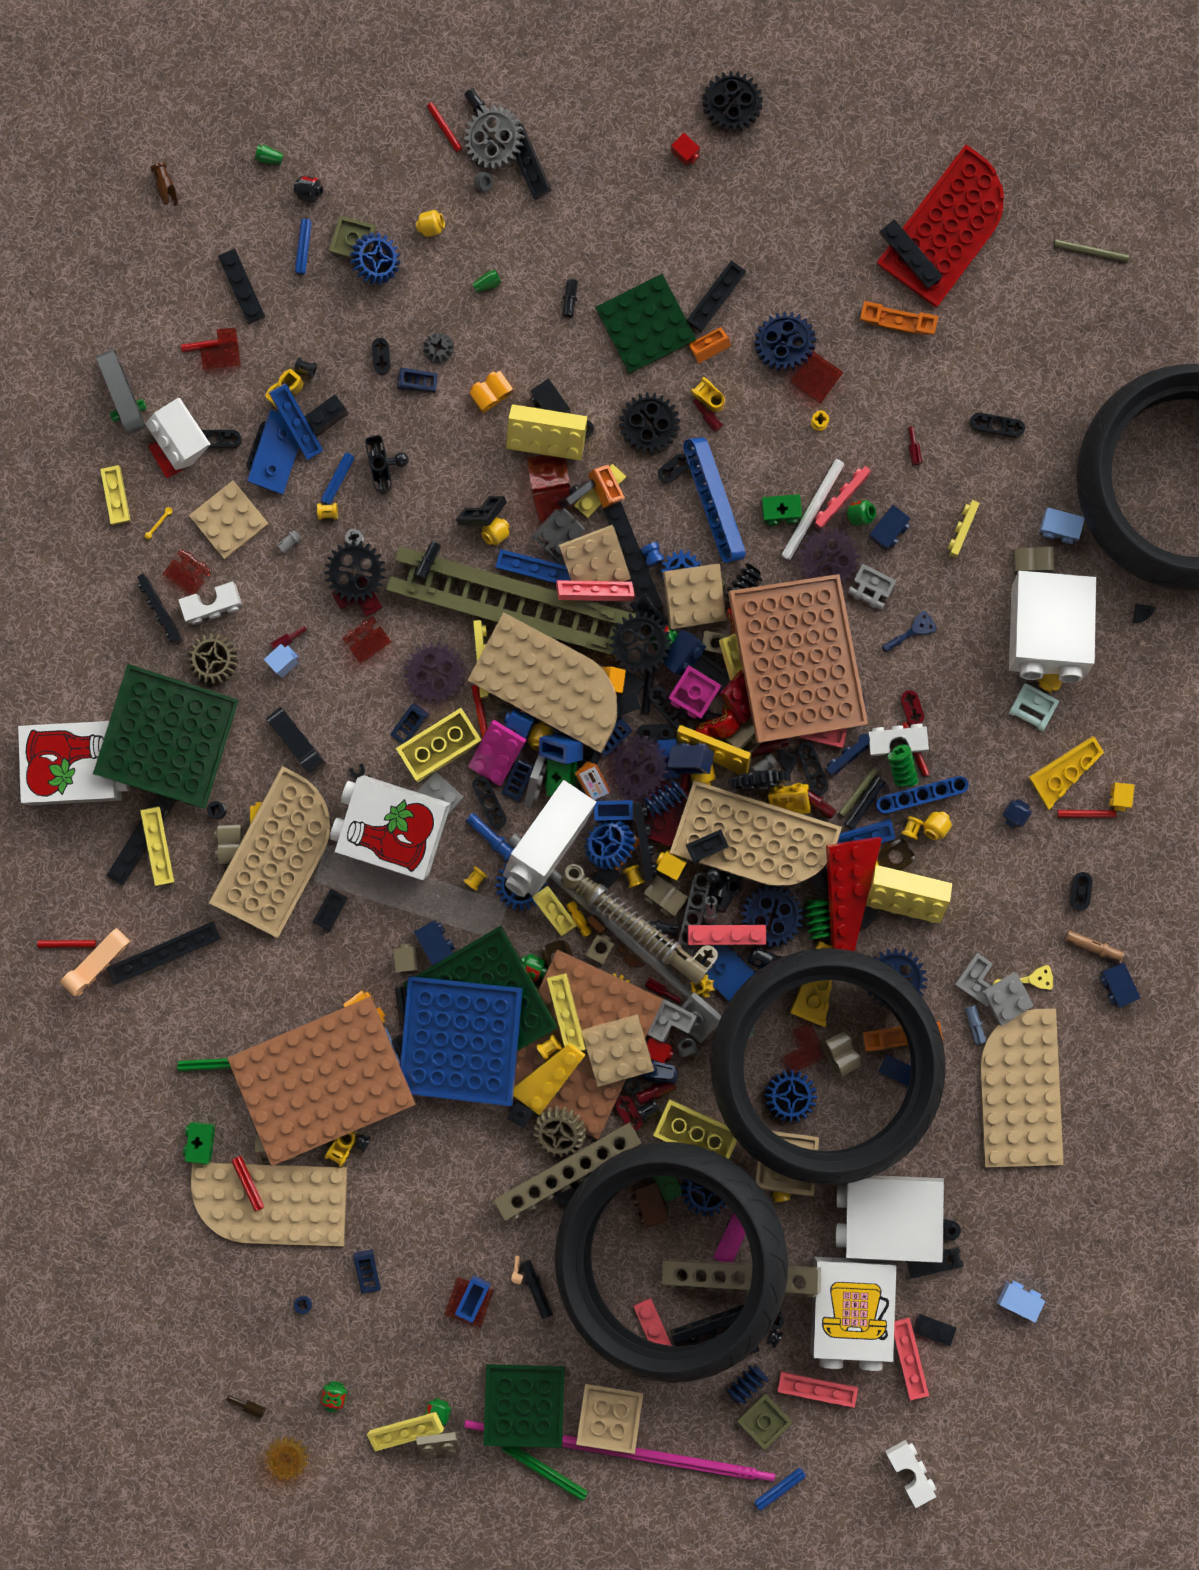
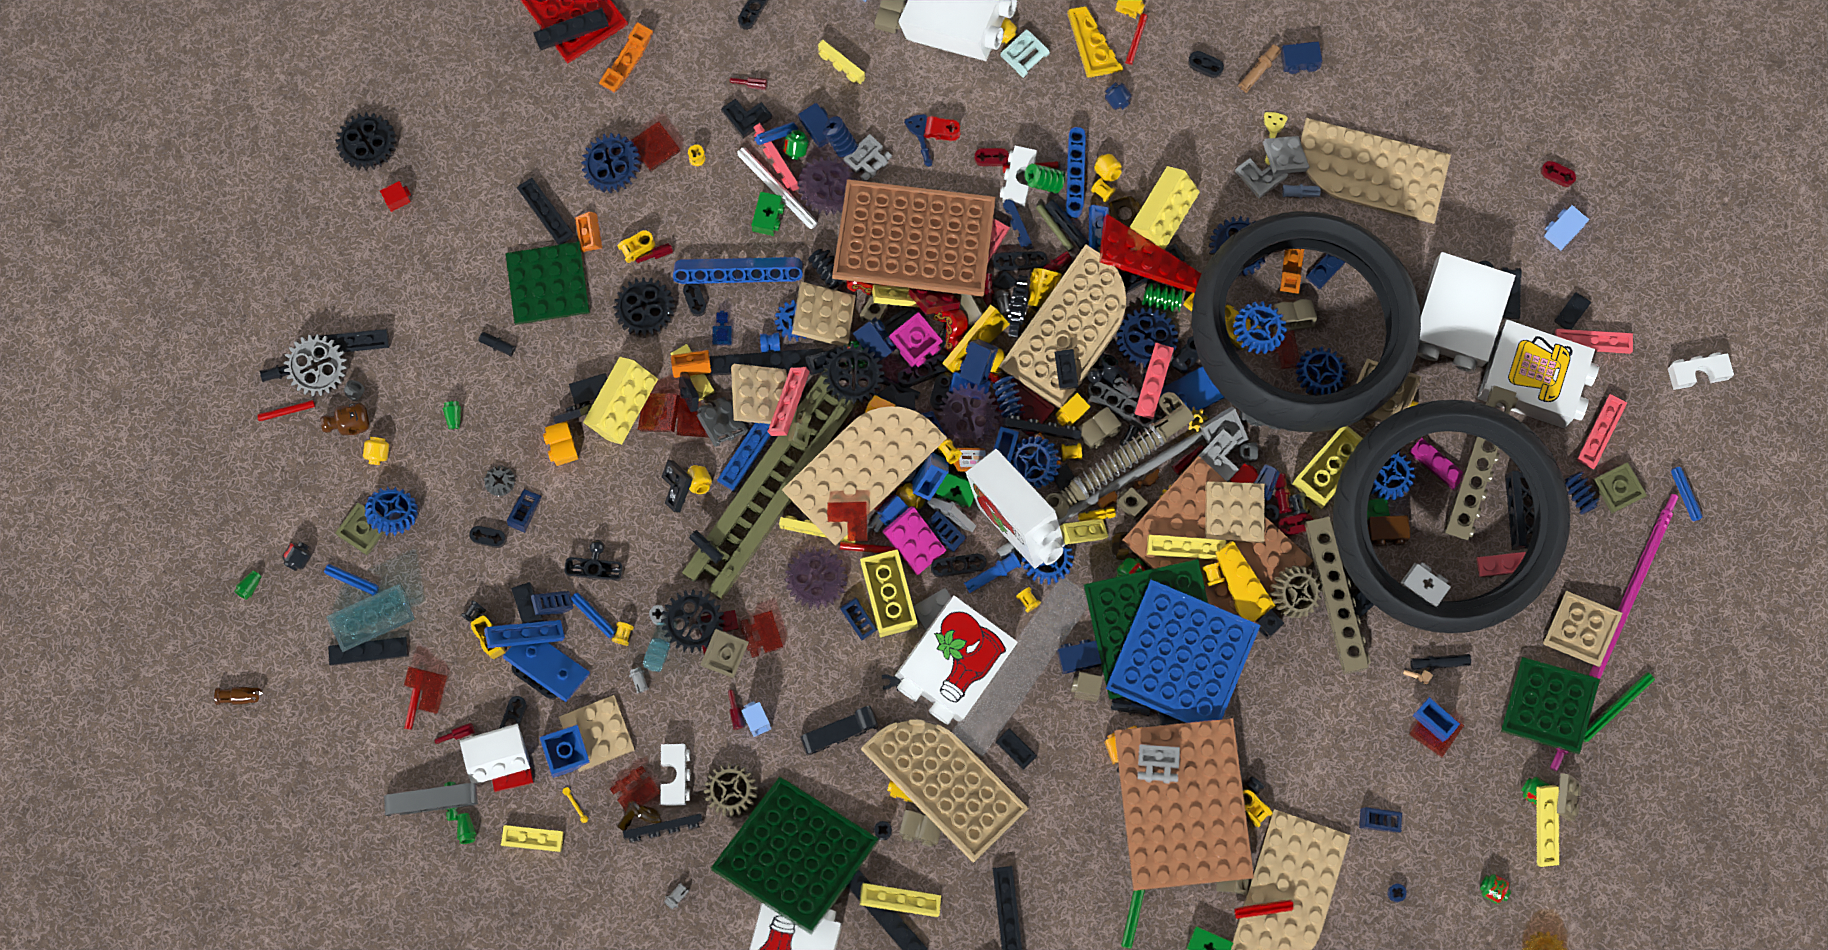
camera: 80 degrees left, 10 degrees down
(101, 641) = (676, 896): none -> light grey pin
(105, 432) = (465, 829): none -> green cone
(163, 577) = (645, 813): none -> dark brown piece
(191, 394) = (457, 733): none -> dark red axle
(199, 495) = (564, 751): none -> blue slope
(271, 276) = (371, 617): none -> clear light blue slope
(315, 549) = (656, 654): none -> clear light blue gear
(334, 611) = (724, 653): none -> dark tan plate
(341, 445) = (562, 599): none -> dark blue slope
(354, 1046) = (1158, 756): none -> light grey plate
(450, 186) = (348, 419): none -> reddish brown piece
(499, 687) = (854, 514): none -> clear red plate
(520, 392) = (572, 412): none -> black plate
(565, 611) = (799, 432): none -> olive plate
(580, 1261) = (1432, 594): none -> light grey brick
(588, 764) = (949, 451): none -> yellow bush
(647, 506) = (722, 334): none -> clear blue plate
(800, 1015) = (1253, 313): none -> blue gear
(865, 489) = (775, 133): none -> blue axle
(871, 455) = (745, 121): none -> black plate
(880, 552) = (839, 137): none -> dark blue piece
(925, 647) = (940, 128): none -> red piece
(1073, 1278) = (1560, 170): none -> dark red beam

